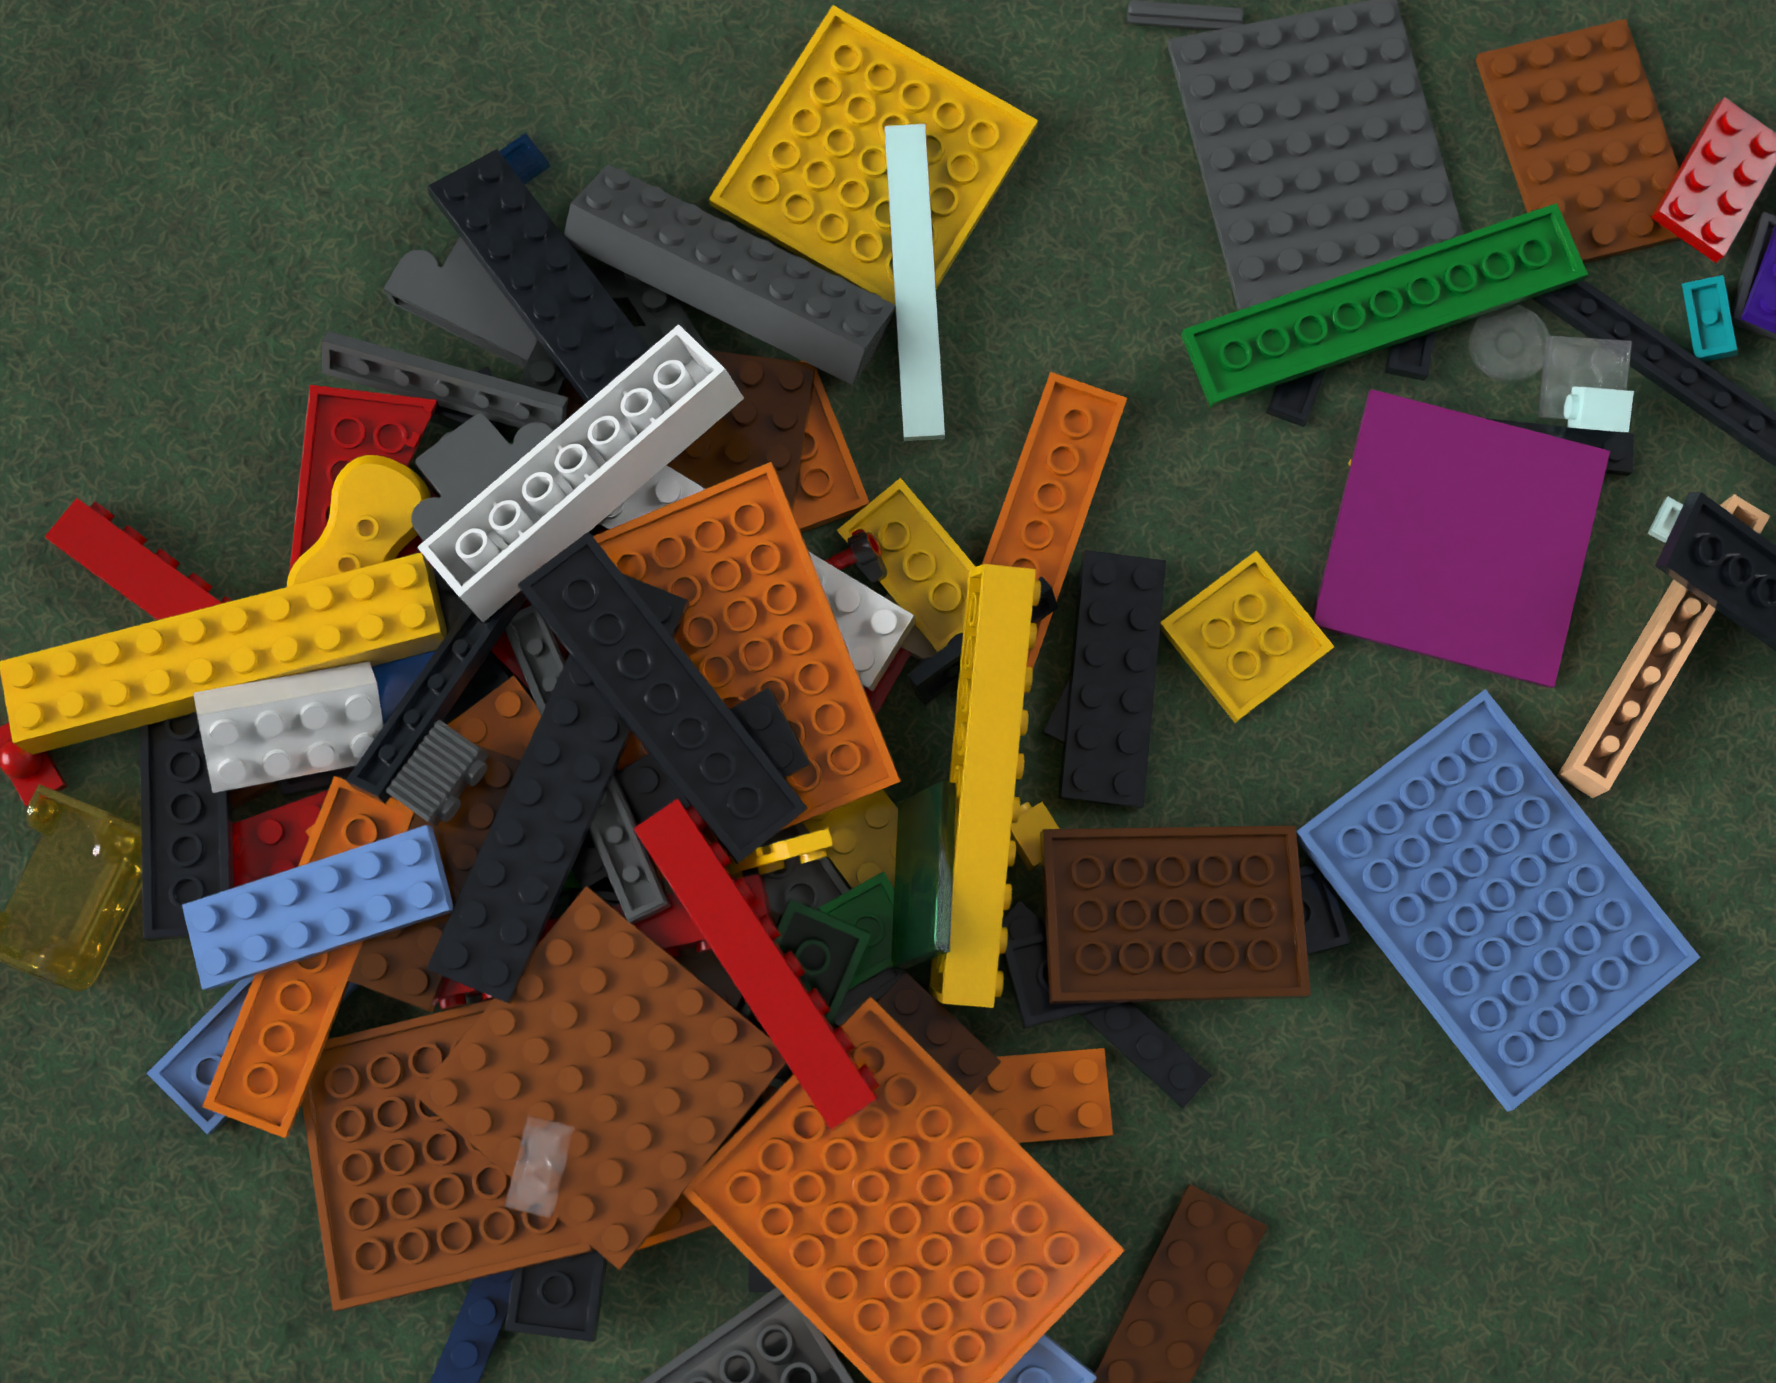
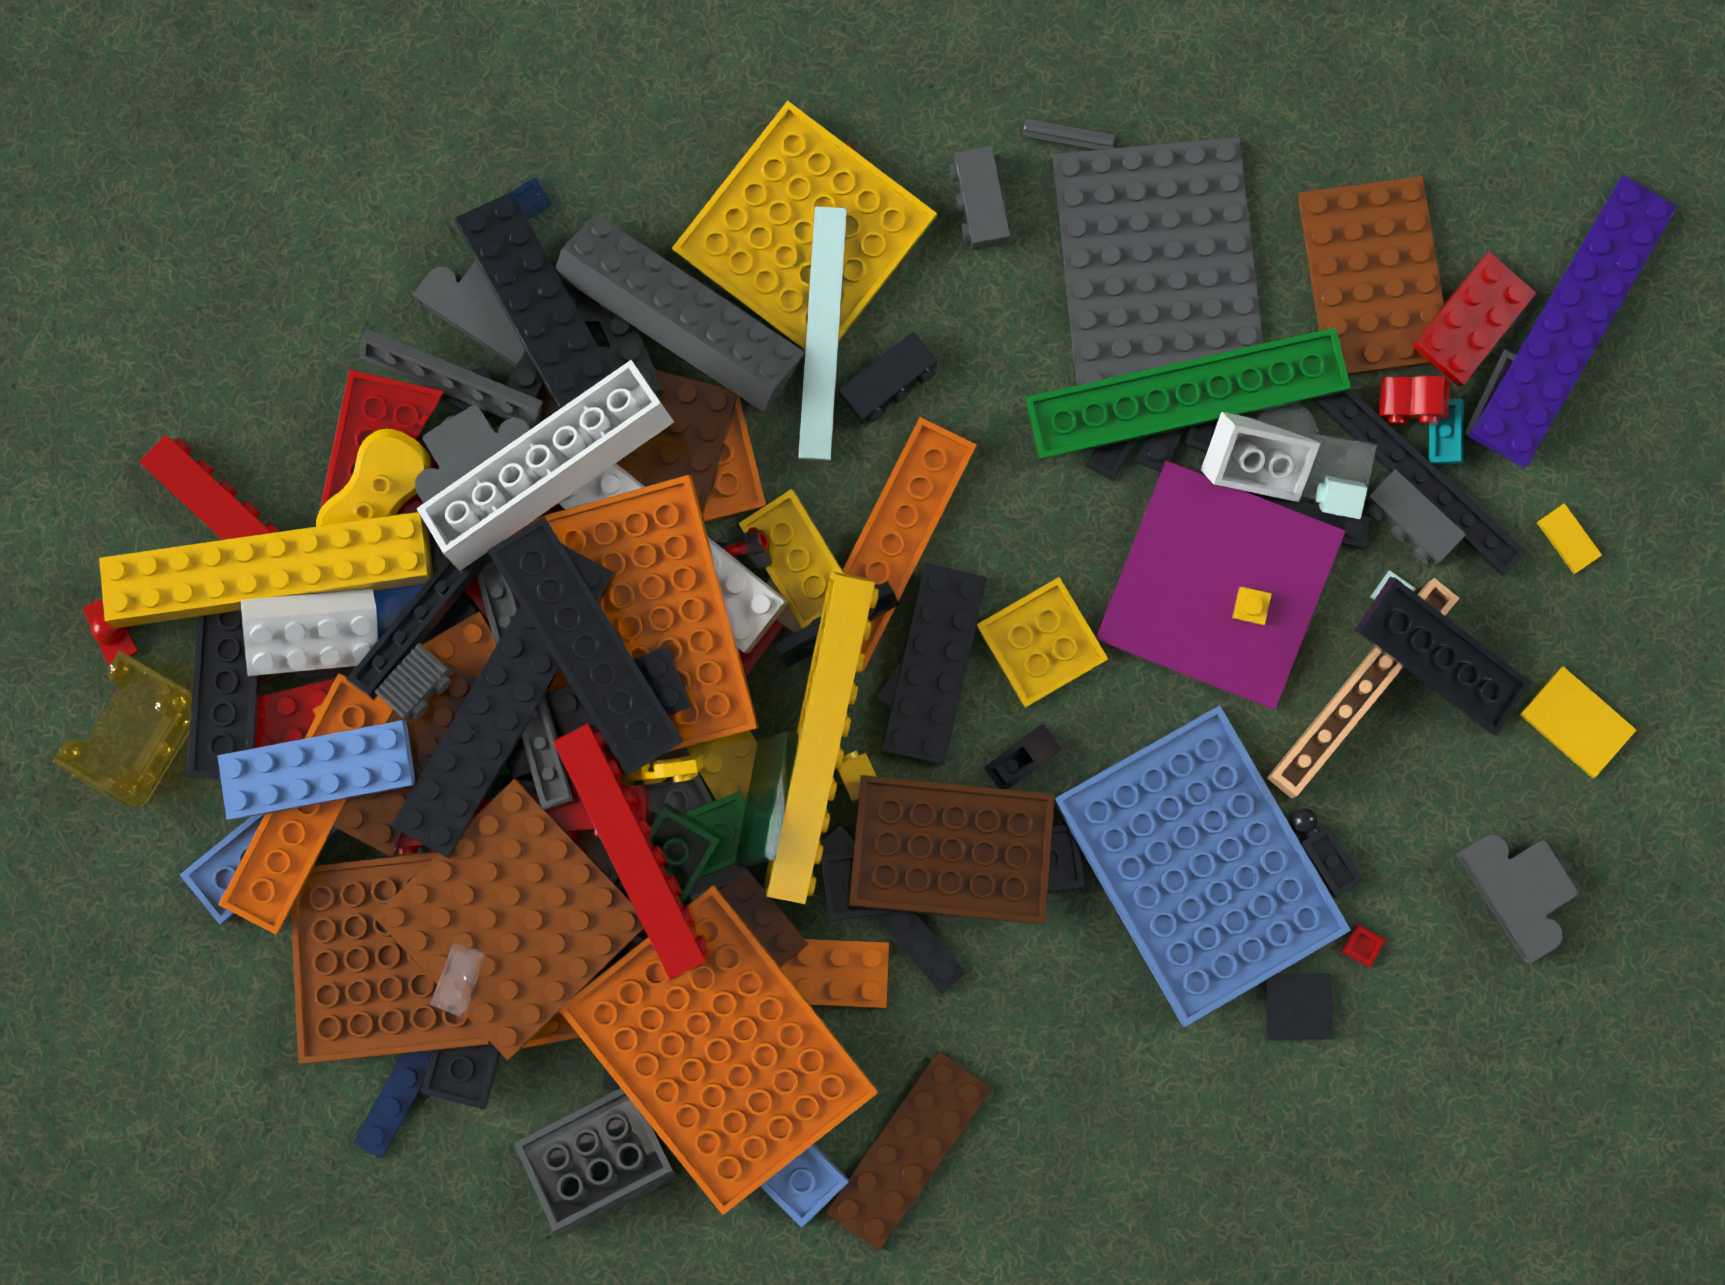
camera: 15 degrees right, 5 degrees up
(1004, 329) = (889, 379): none -> black brick
(1088, 99) = (980, 198): none -> dark grey brick
(1244, 786) = (1023, 758): none -> black slope
(1355, 380) = (1159, 449): none -> black plate
(1487, 372) = (1259, 457): none -> white slope
(1507, 557) = (1251, 605): none -> yellow plate
(1648, 1066) = (1299, 1006): none -> black tile
(1651, 862) = (1326, 853): none -> black plate
(1666, 282) = (1414, 399): none -> red brick
(1690, 429) = (1414, 519): none -> dark grey brick
(1716, 976) = (1363, 945): none -> red tile

